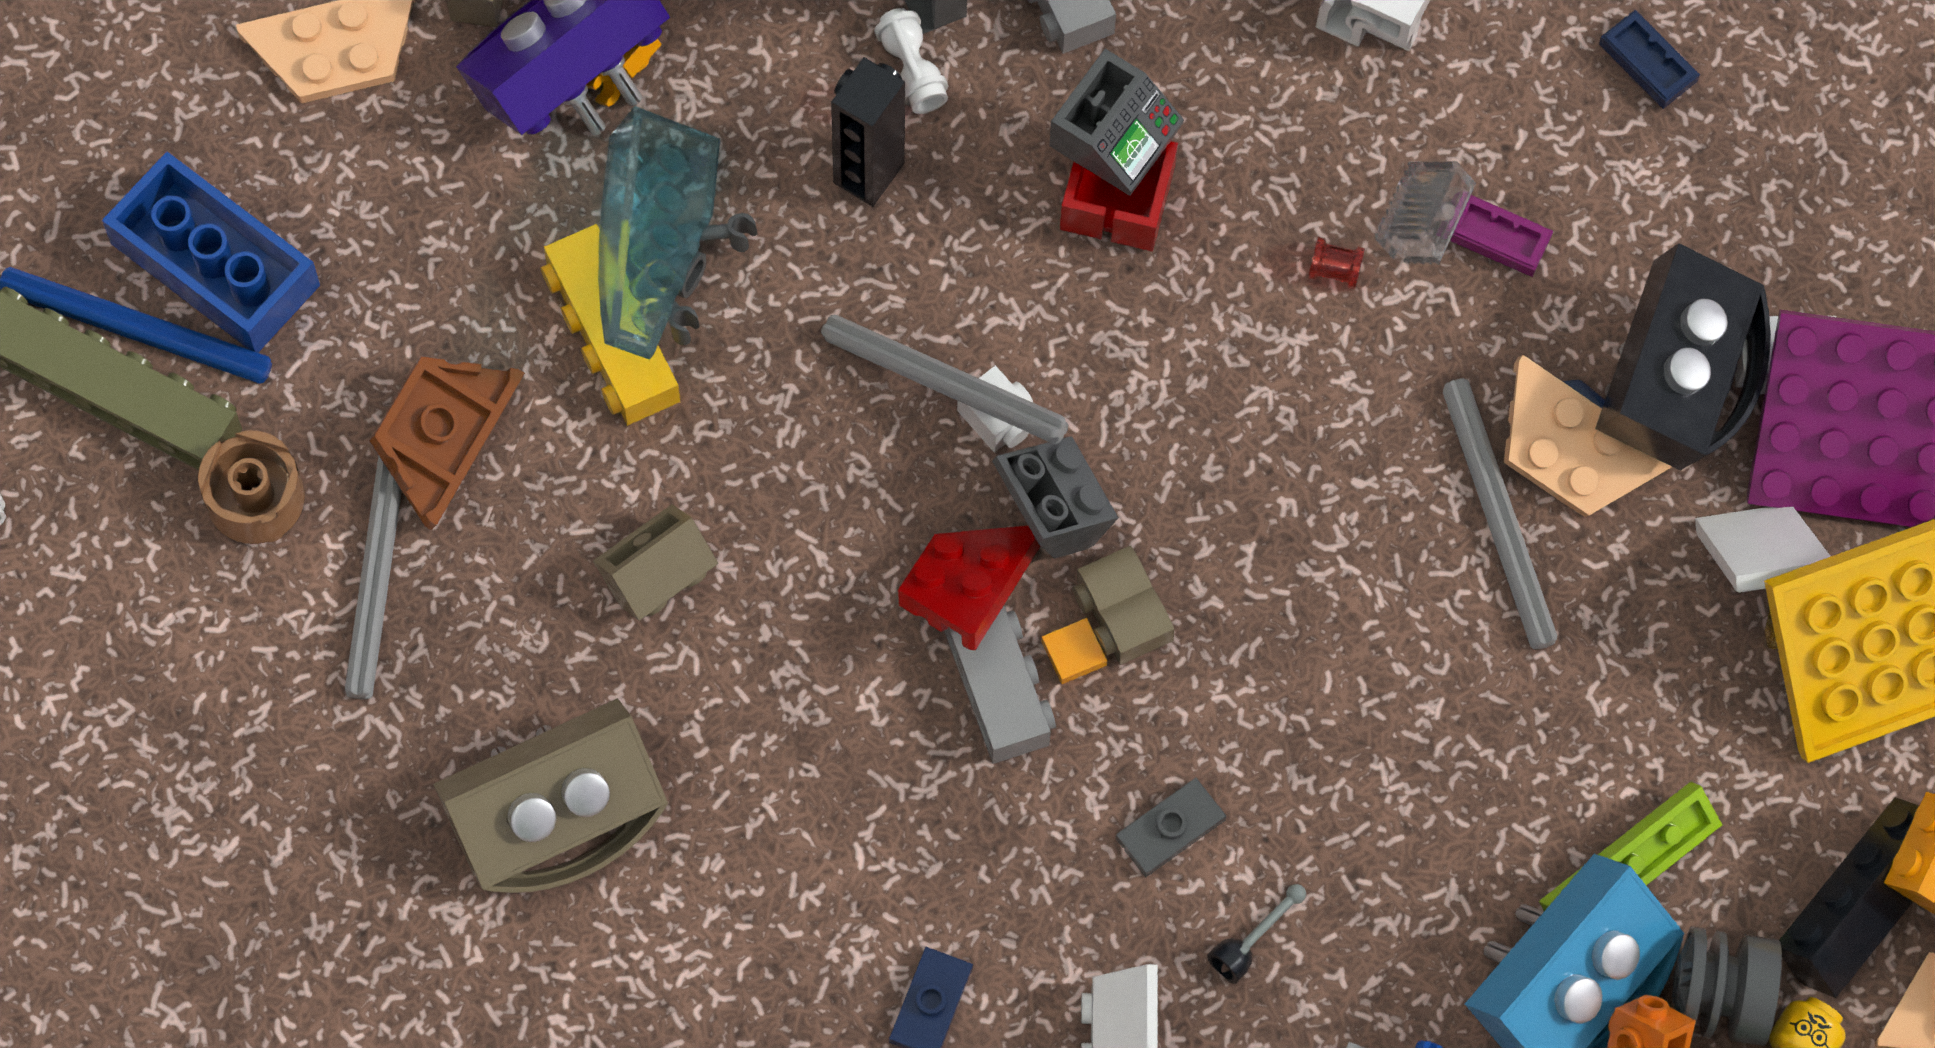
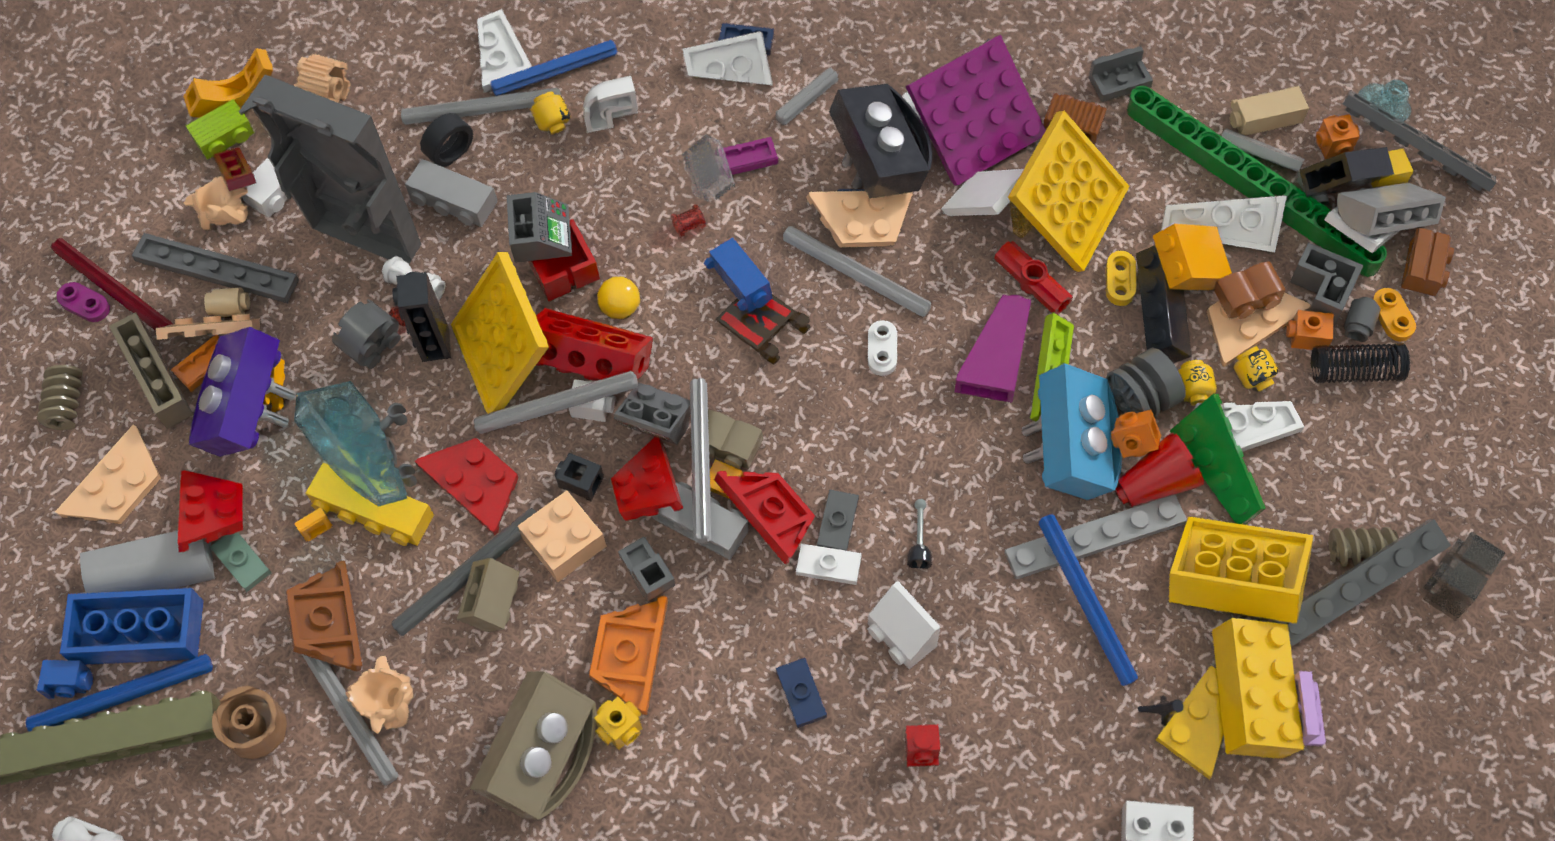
camera: 35 degrees left, 5 degrees down
(86, 253) = (64, 678): none -> blue brick
(292, 187) = (146, 565): none -> light grey brick
(403, 268) = (240, 560): none -> sand green plate
(414, 171) = (208, 508): none -> red wing
(428, 583) = (382, 696): none -> light nougat hair
(523, 295) = (313, 524): none -> light orange tile
(642, 508) = (458, 577): none -> dark grey axle
(676, 869) = (618, 733): none -> yellow brick
(765, 395) = (473, 479): none -> red wing
(767, 775) = (629, 651): none -> orange wing
(788, 91) = (366, 333): none -> dark grey brick
(808, 560) = (562, 536): none -> light nougat brick
(874, 689) = (646, 569): none -> dark grey brick
(903, 517) = (576, 466): none -> black brick
(946, 229) = (499, 334): none -> yellow plate
(1046, 333) = (600, 345): none -> red brick
(1058, 604) = (700, 461): none -> light grey axle
(1095, 740) = (770, 508): none -> red wing
(1109, 872) = (828, 564): none -> white plate
(1153, 297) = (618, 297): none -> yellow hair
(1312, 472) = (762, 324): none -> dark brown flag
(1335, 396) = (740, 275): none -> blue brick
(1439, 645) = (880, 346): none -> white plate
(1579, 779) = (996, 355): none -> magenta slope
(1598, 74) = (730, 59): none -> white wing
(1658, 209) = (806, 96): none -> light grey axle
(1727, 688) = (1044, 288): none -> red piece
(1846, 815) = (1121, 280): none -> yellow plate

